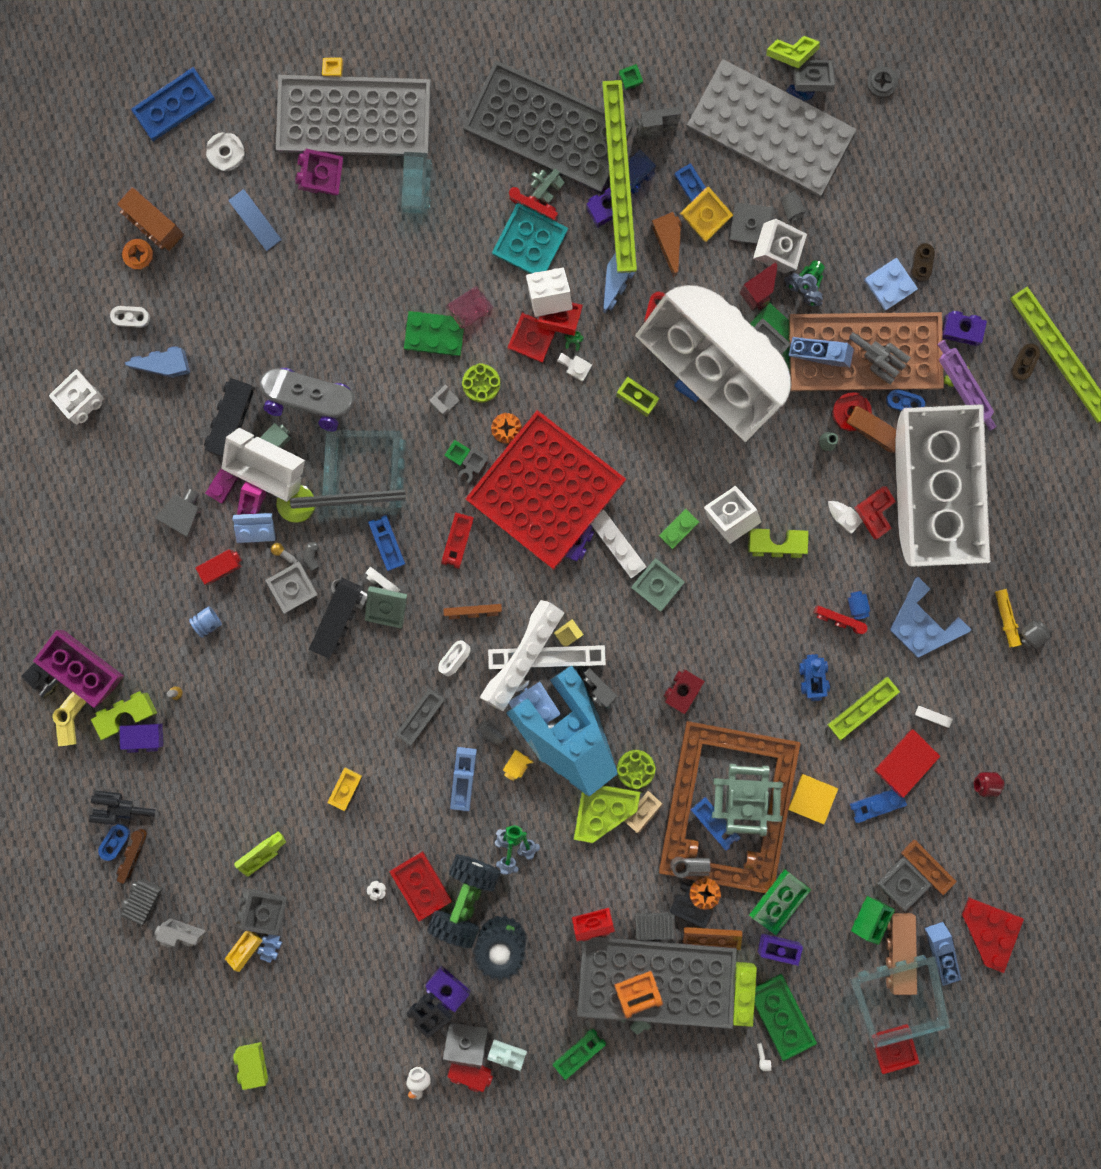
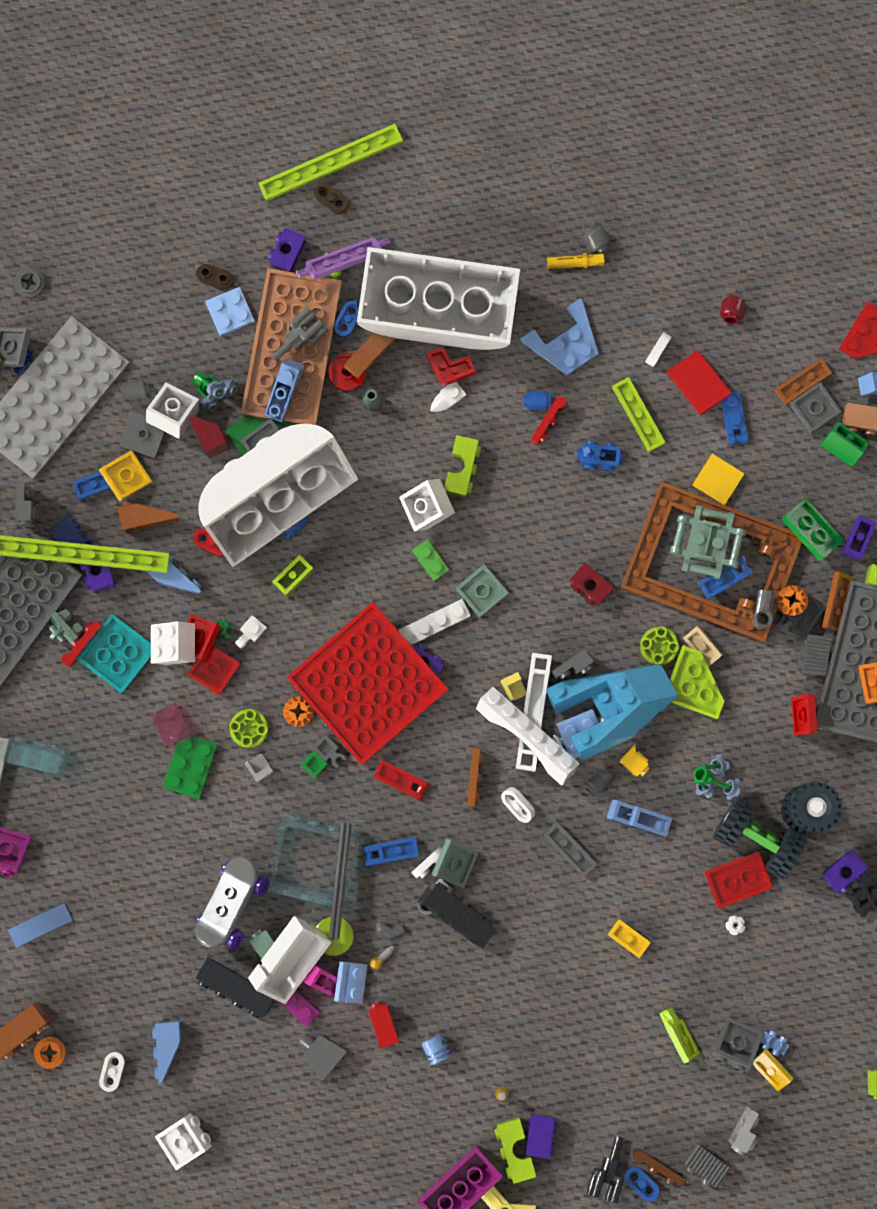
camera: 75 degrees left, 5 degrees down
(291, 587) = (417, 955): light grey plate -> none

